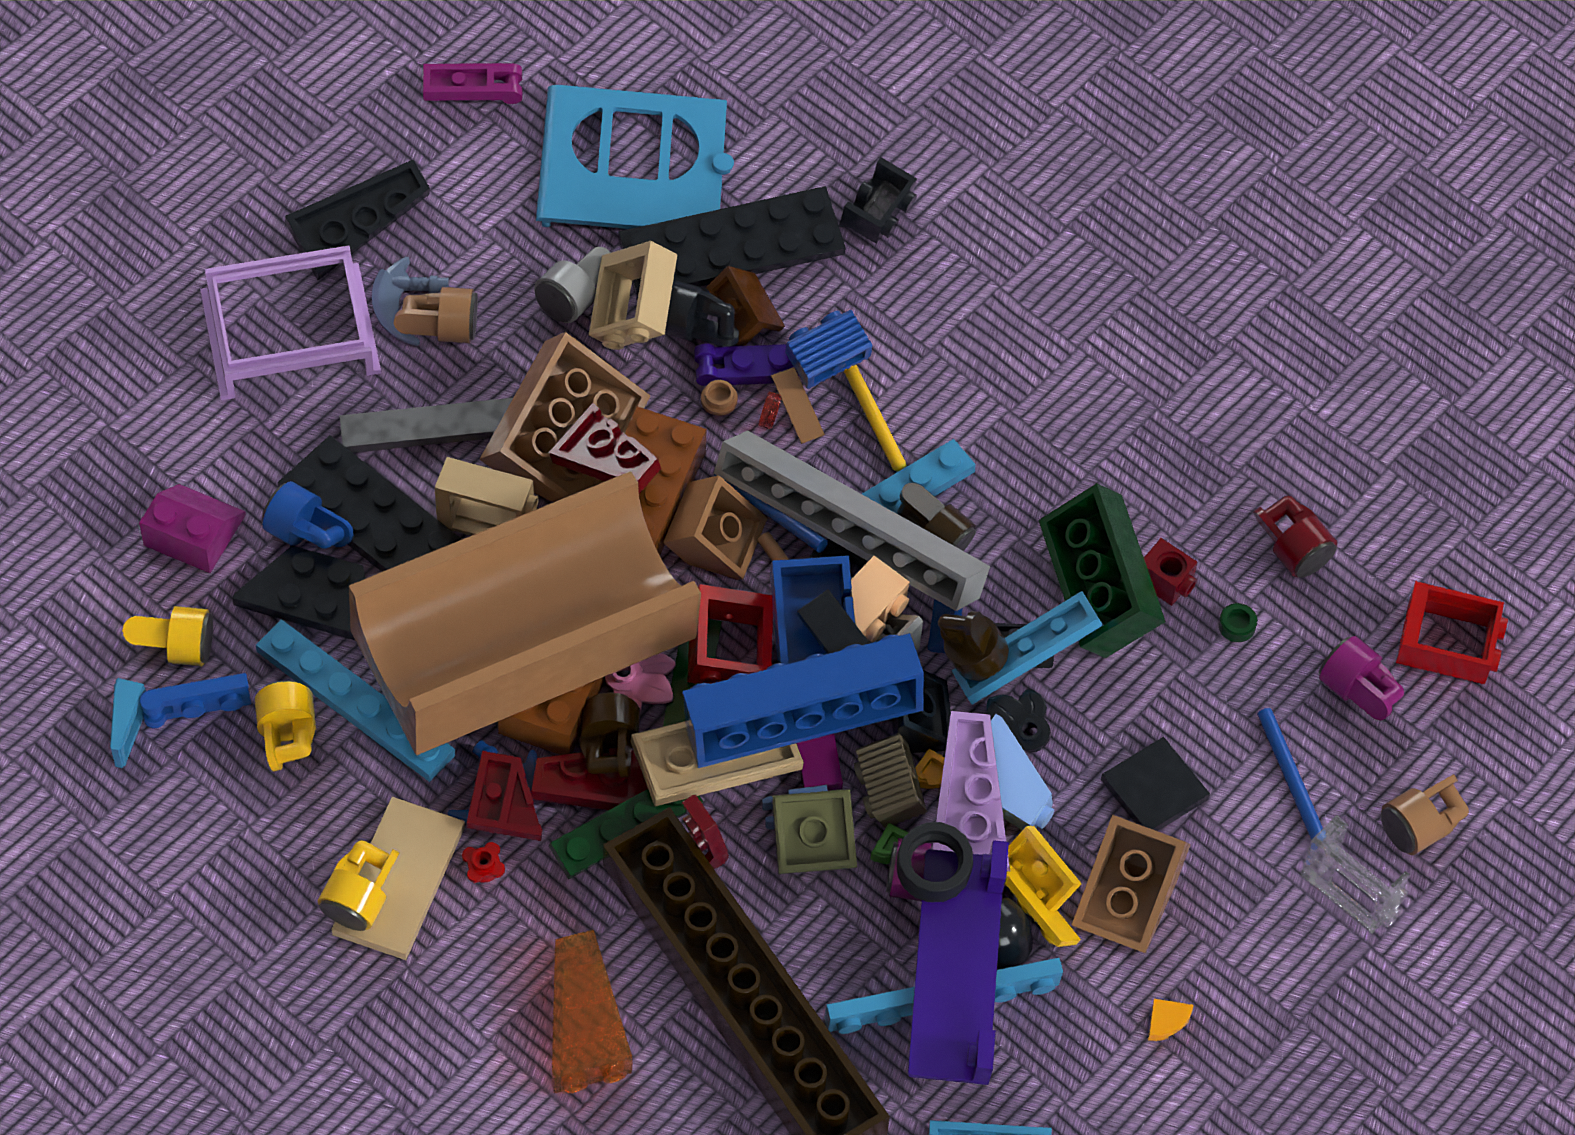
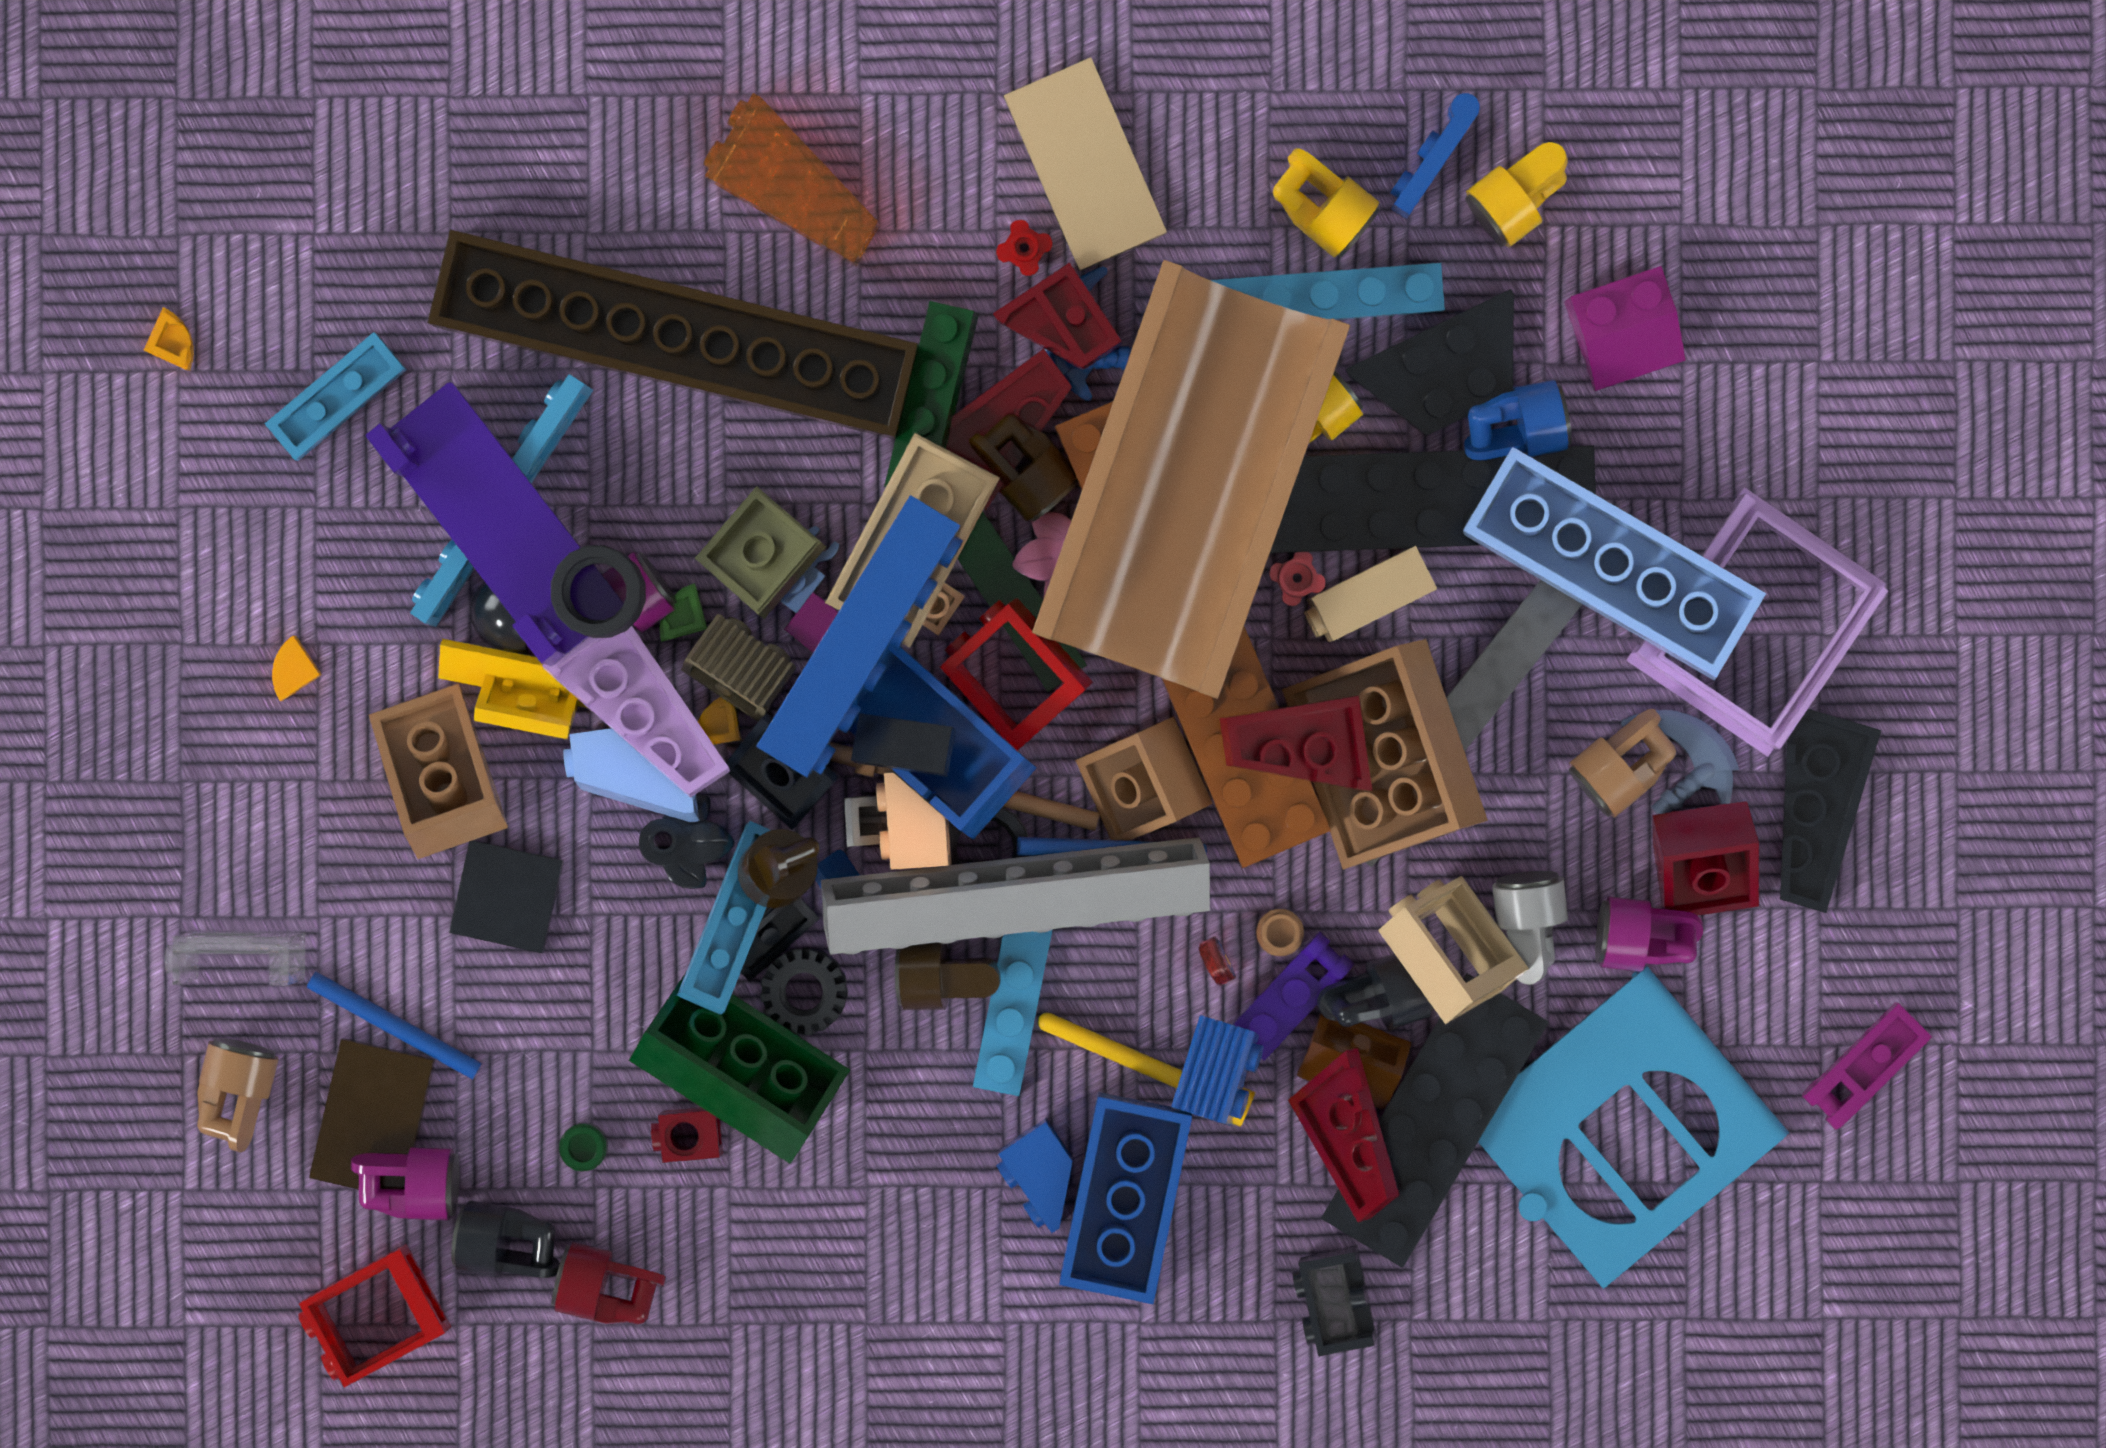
camera: 135 degrees right, 30 degrees up
(125, 719) = (1477, 76): dark azure slope -> none
(336, 393) = (1613, 563): none -> light blue brick
(352, 898) = (1088, 88): yellow piece -> none
(445, 239) = (1707, 859): none -> dark red slope
(527, 236) = (1636, 934): none -> magenta piece
(705, 831) = (838, 438): dark red hinge -> none
(787, 263) = (1347, 1134): none -> dark red wing
(798, 405) = (1199, 995): medium nougat sticker -> none
(945, 336) = (1125, 1198): none -> blue brick
(977, 390) = (1042, 1170): none -> blue slope
(1028, 571) = (804, 961): none -> black tyre
(1346, 611) = (484, 1239): none -> black piece
(1350, 744) = (370, 1108): none -> dark brown tile

